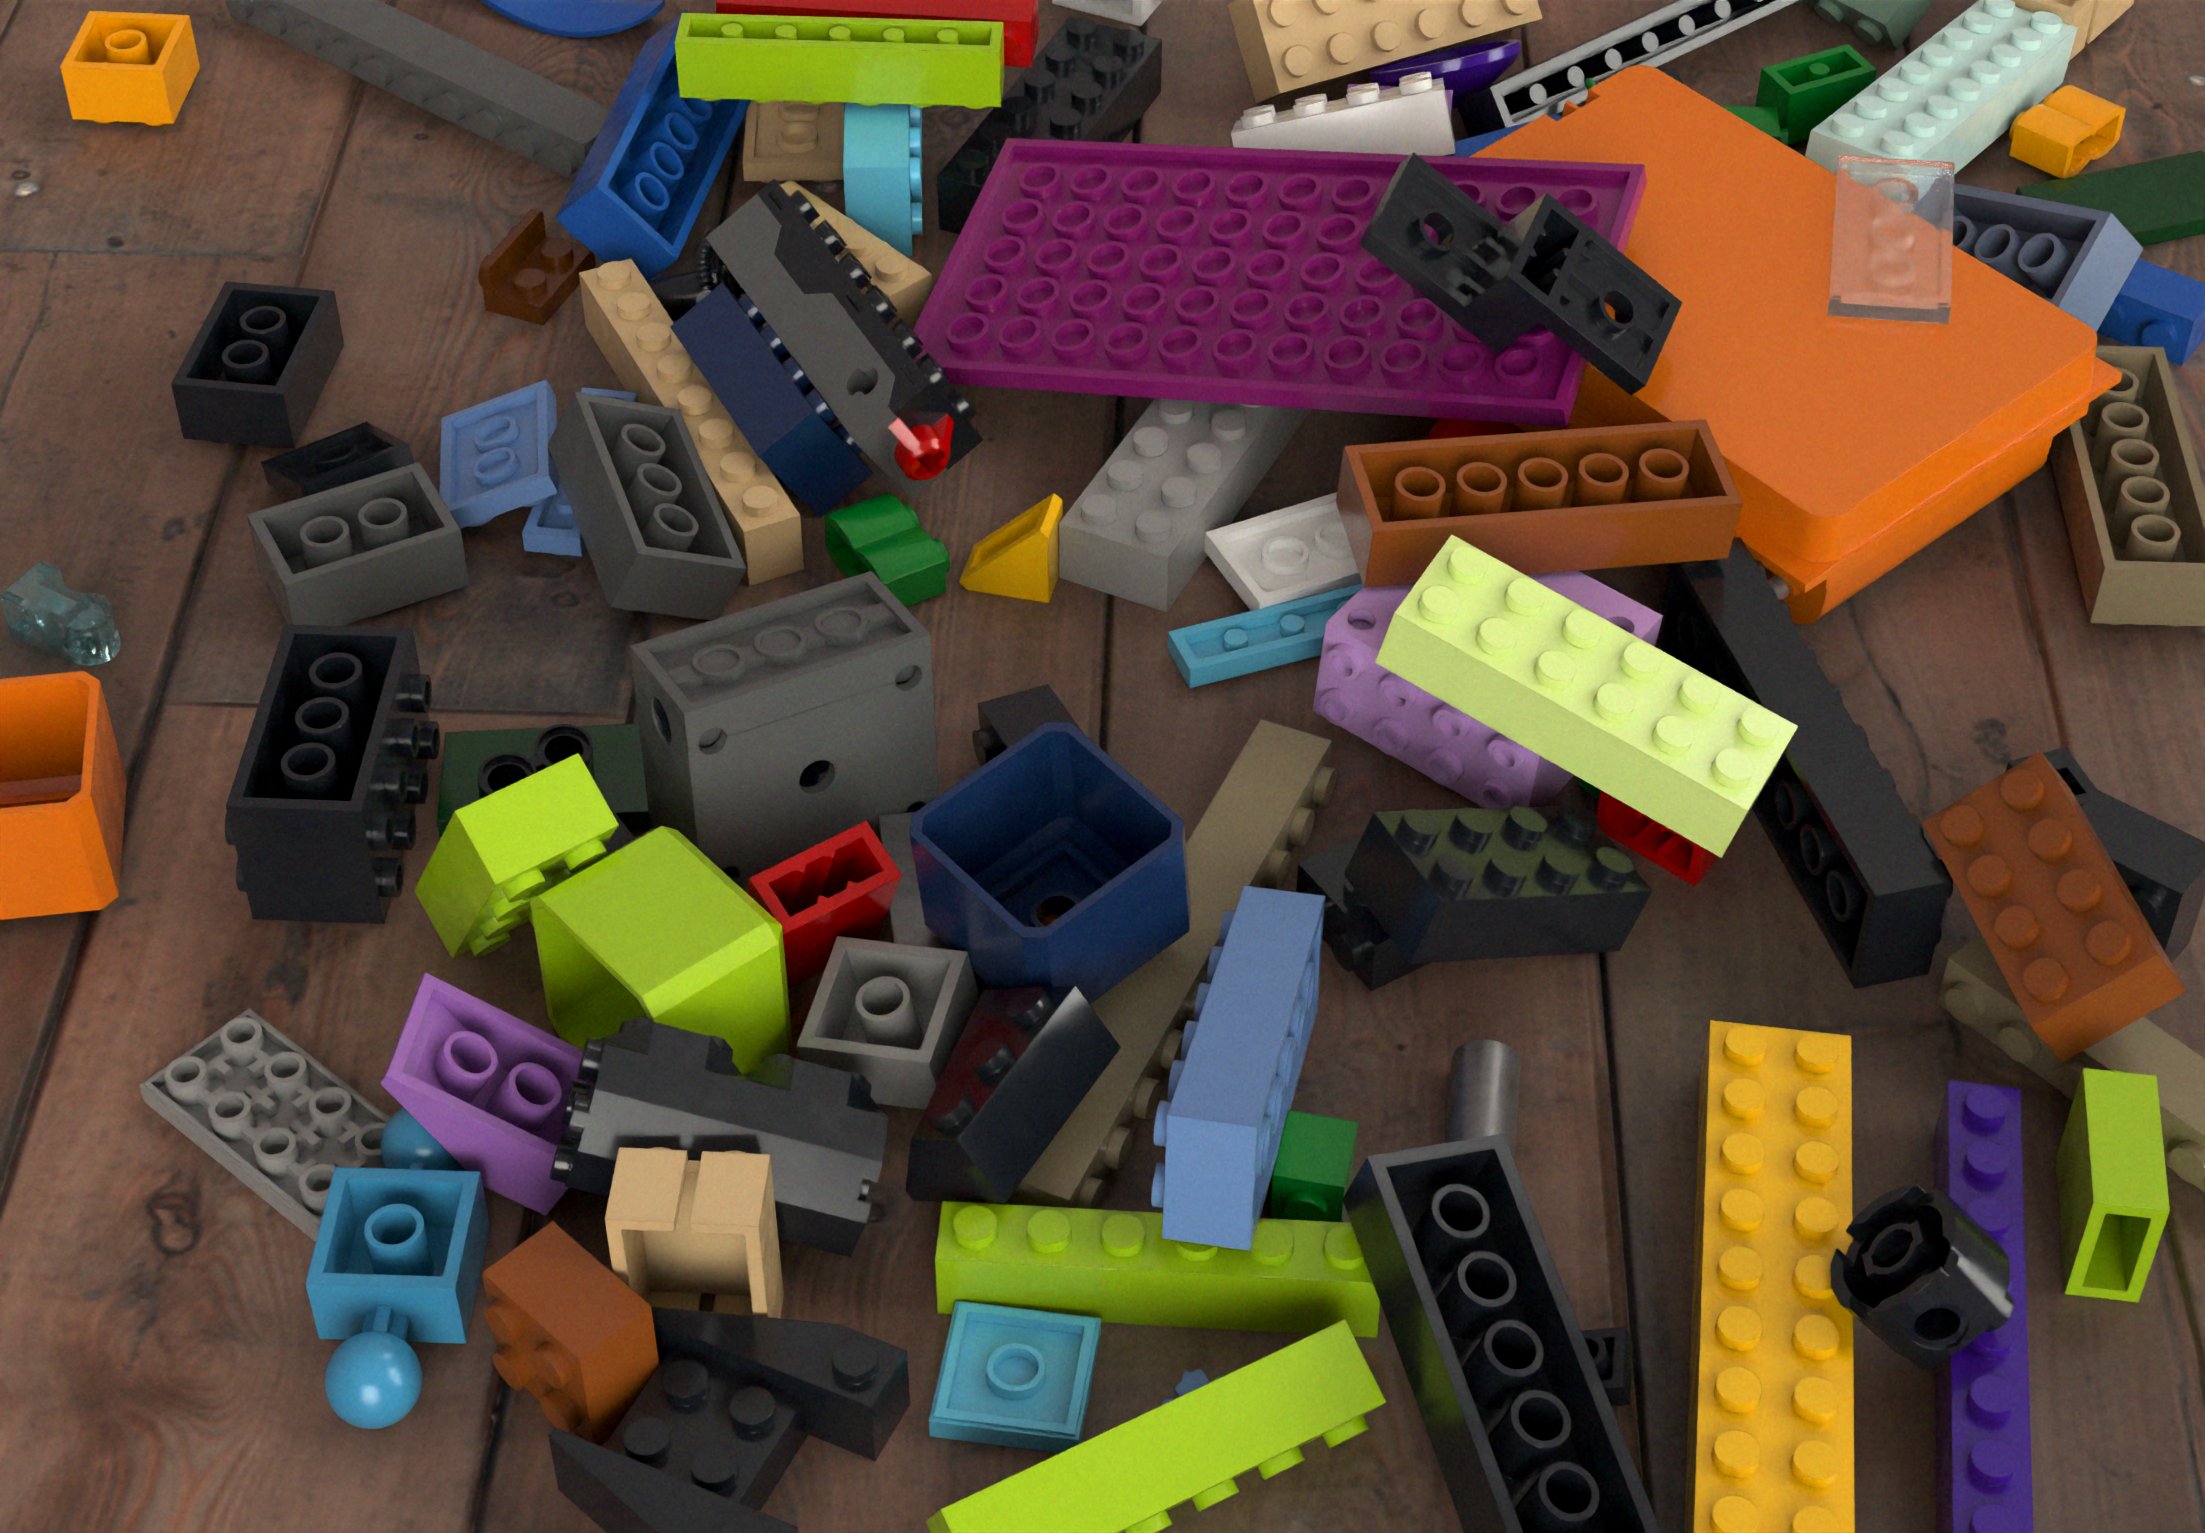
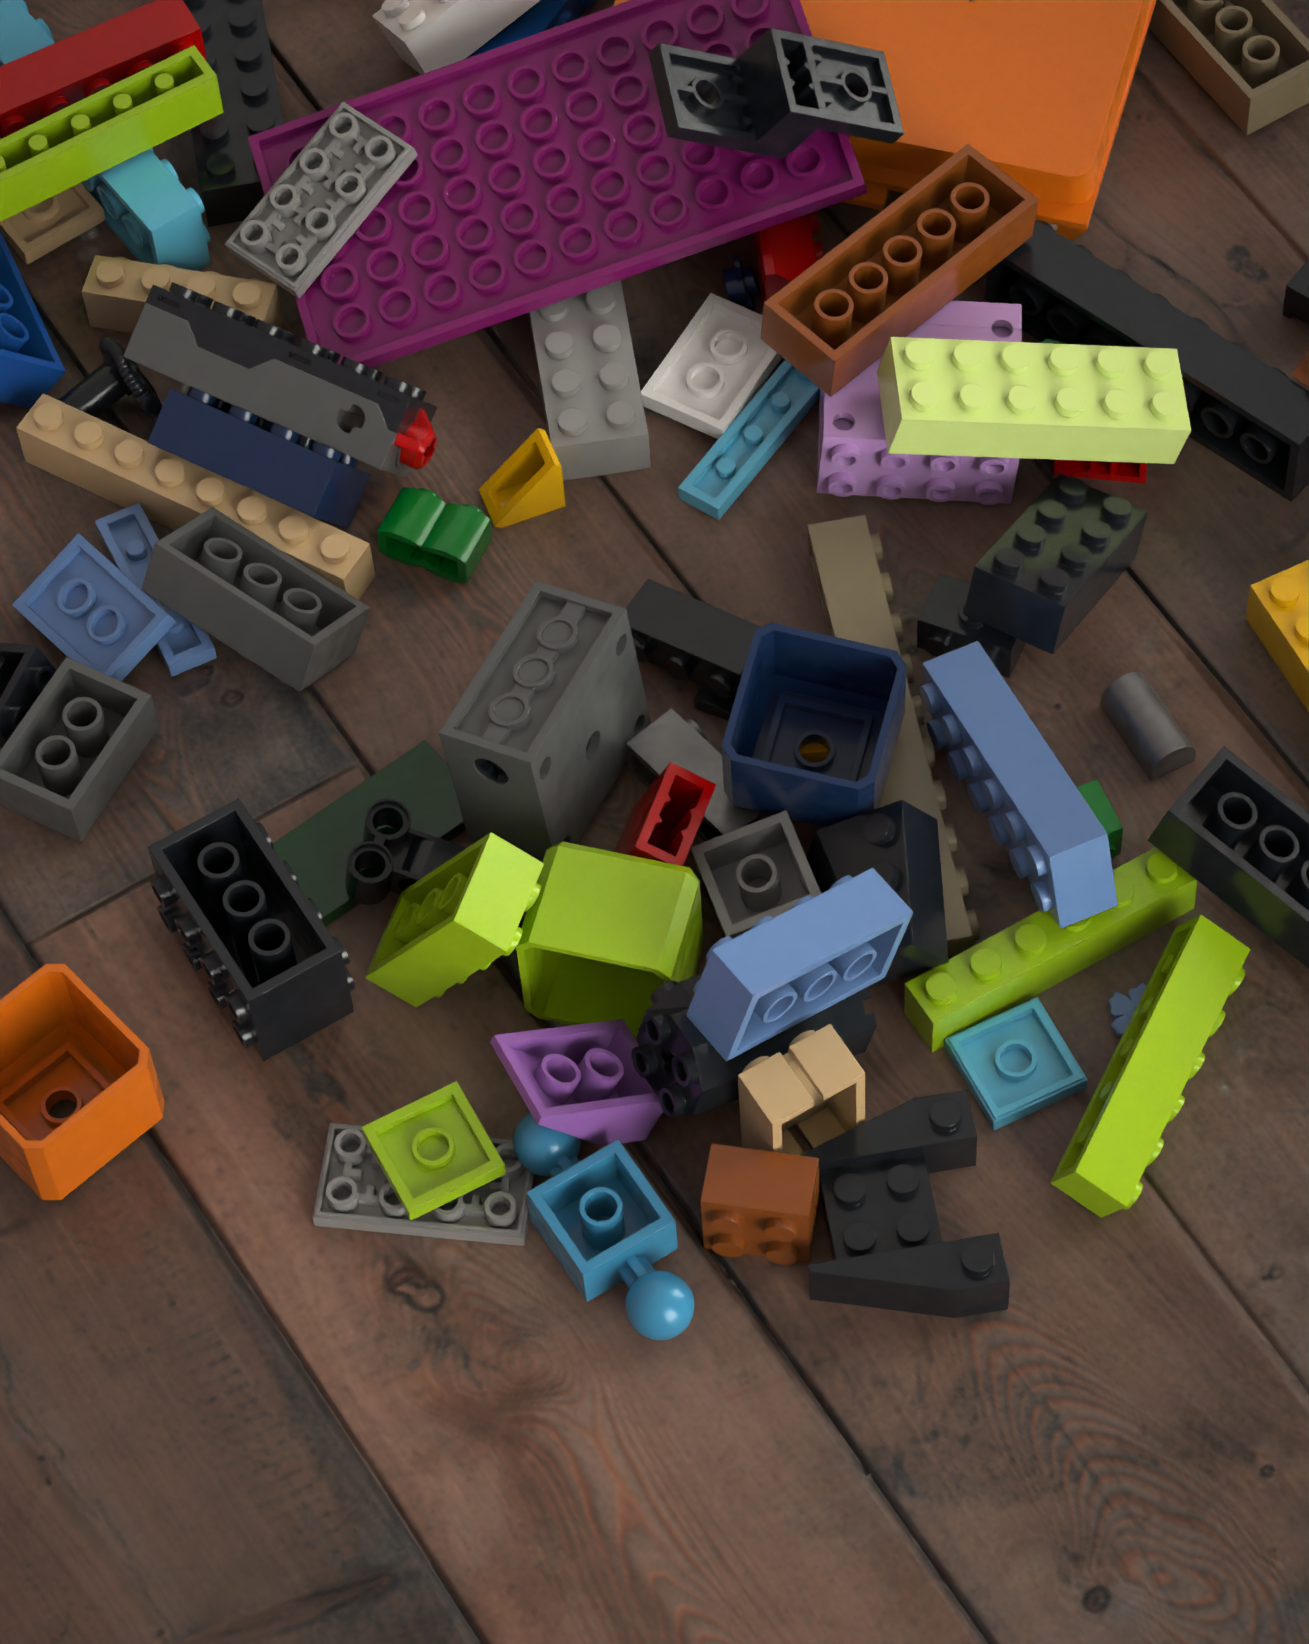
camera: 30 degrees left, 15 degrees up
(299, 1080) = (433, 1150): none -> lime plate
(785, 1066) = (798, 963): none -> medium blue brick
(1024, 211) = (321, 199): none -> light grey tile

